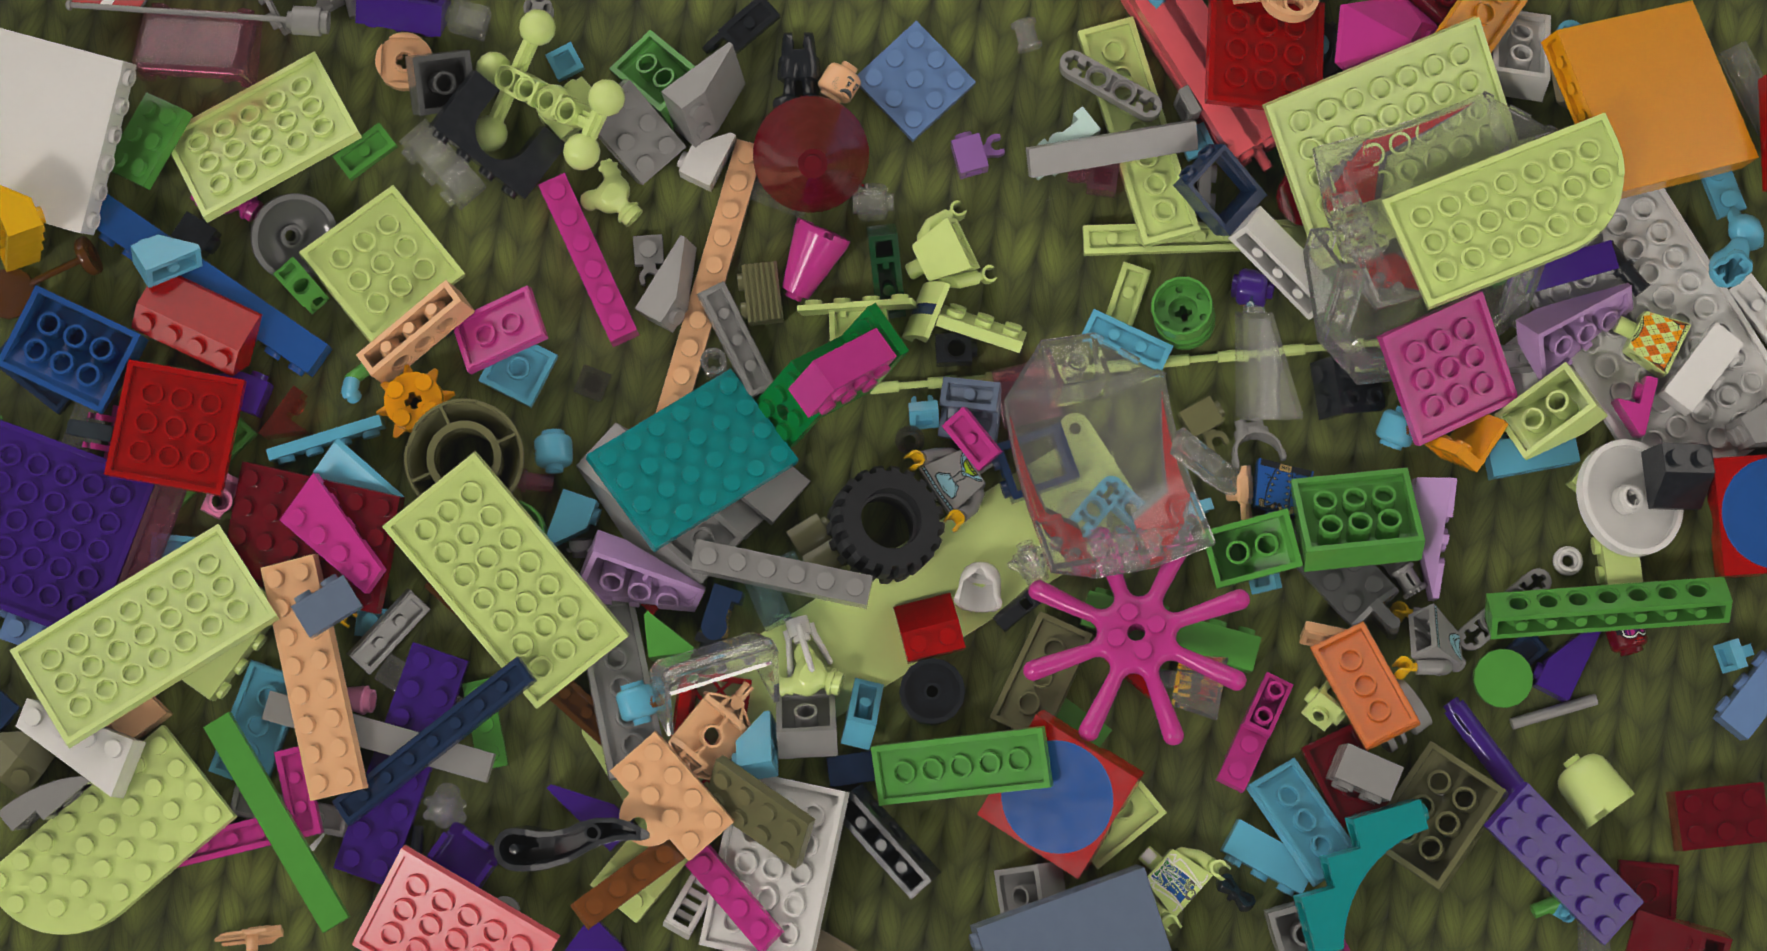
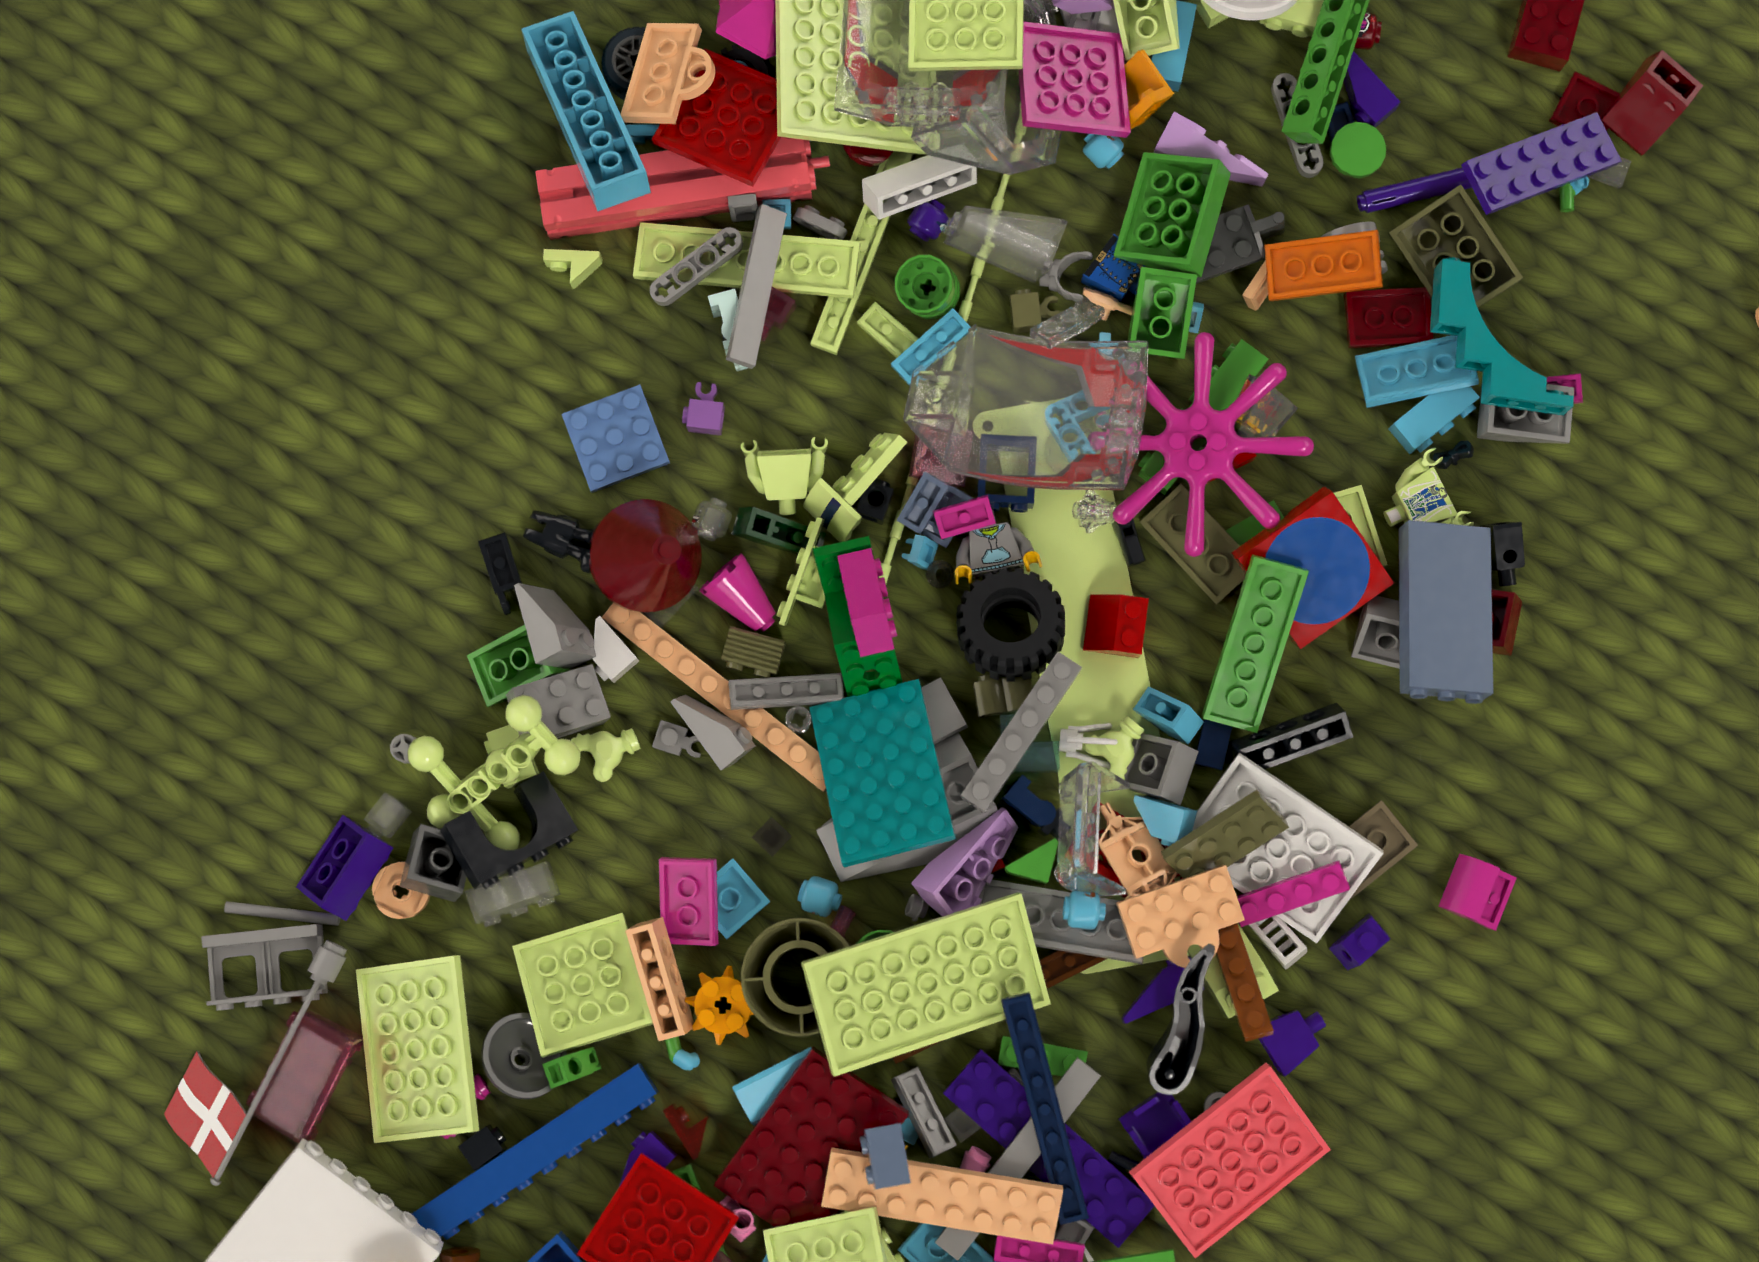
camera: 65 degrees left, 0 degrees up
(149, 140) = (375, 1155): bright green plate -> none
(164, 258) = (496, 1184): medium azure slope -> none
(198, 323) = (566, 1176): red slope -> none
(314, 444) = (724, 1114): medium azure plate -> none
(332, 534) = (813, 1129): dark pink wing -> none
(365, 152) = (473, 960): bright green plate -> none
(445, 806) = (1104, 1122): clear rock -> none
(564, 62) = (464, 744): medium azure plate -> none
(573, 517) = (887, 902): medium azure slope -> none
(588, 260) = (657, 794): dark pink brick -> none
(839, 82) = (589, 504): light nougat head -> none
(932, 709) = (1186, 633): black wheel -> none
(976, 598) = (1107, 567): white hair -> none
(1026, 34) = (616, 322): clear bush -> none
(1240, 207) = (851, 196): dark blue window -> none
(1254, 732) = (1319, 381): dark pink slope -> none
(1323, 707) = (1322, 311): yellowish green brick -> none
(1339, 394) = (1051, 184): black bracket -> none
(1364, 773) = (1402, 294): light grey brick -> none
(1405, 577) = (1239, 195): light grey connector -> none
(1432, 641) = (1303, 193): light grey torso -> none
(1553, 711) = (1401, 120): light grey bar -> none
(1574, 554) = (1282, 48): white plate -> none
(1592, 787) = (1484, 113): yellowish green cylinder -> none

